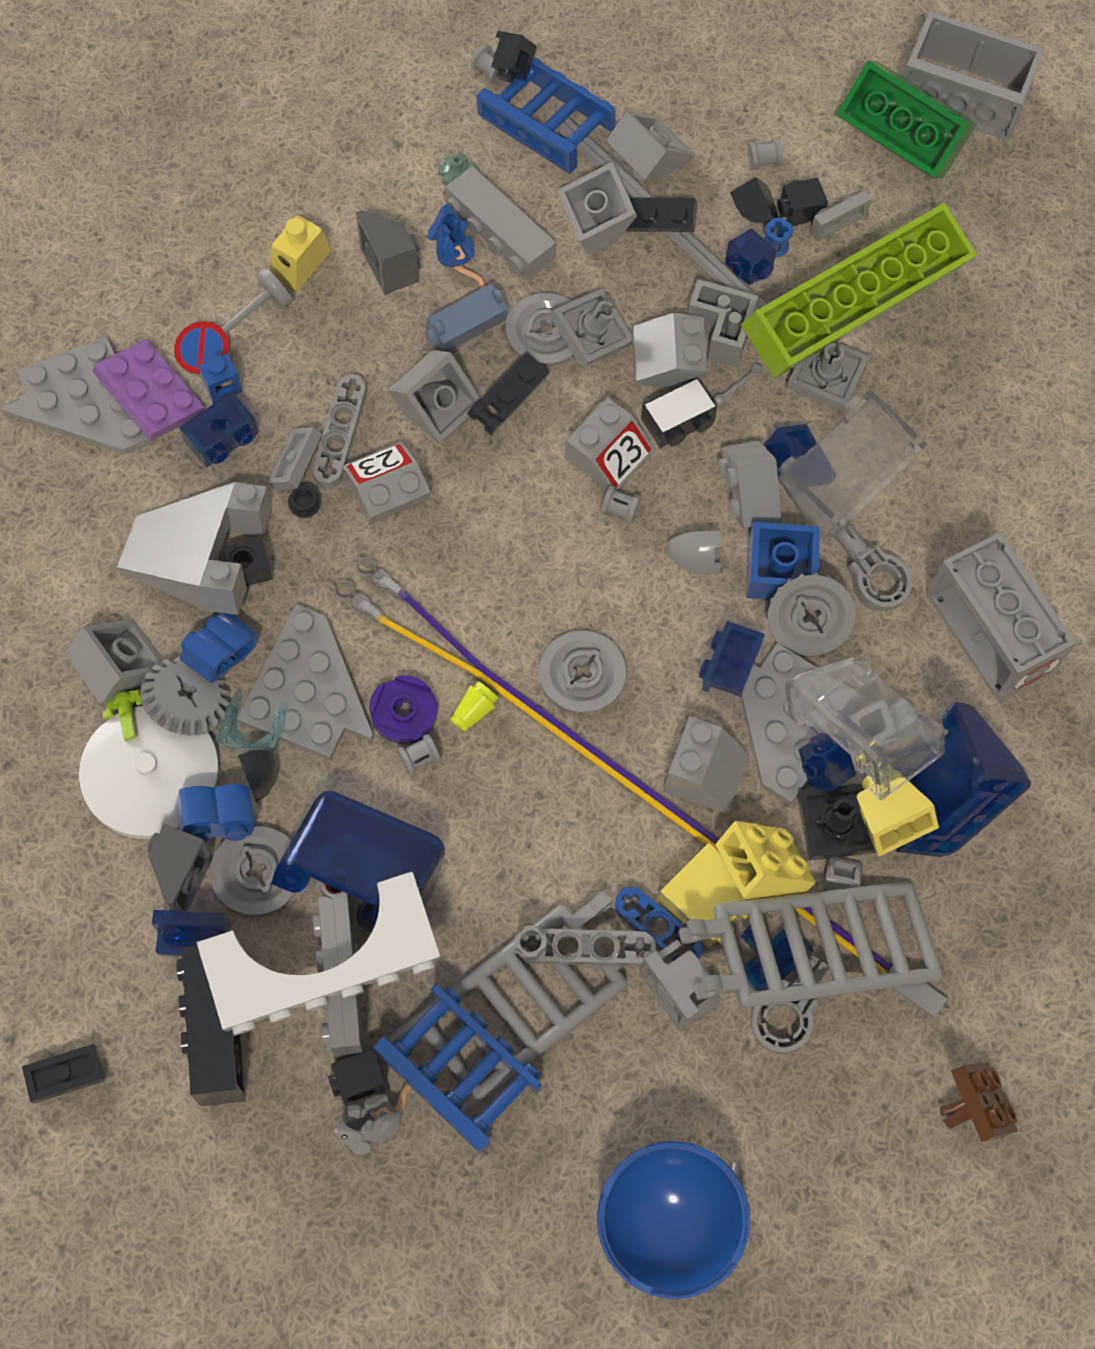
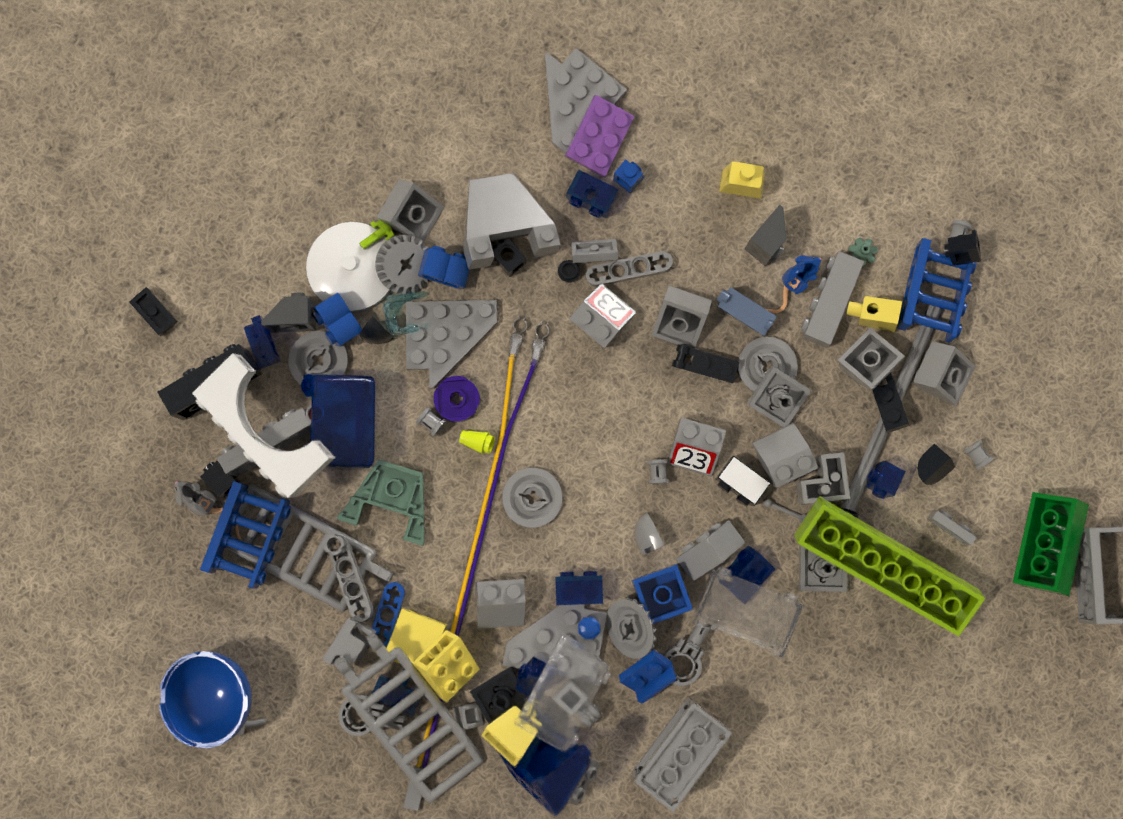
camera: 70 degrees right, 15 degrees up
(206, 339) = (651, 154): piece -> none
(489, 842) = (391, 489): none -> sand green wing
(542, 177) = (885, 315): none -> light yellow torso
(783, 233) = (918, 494): blue bush -> none
(788, 665) = (589, 628): none -> blue tile
(801, 201) = (950, 496): black brick -> none
(884, 620) = (649, 676): none -> blue bracket

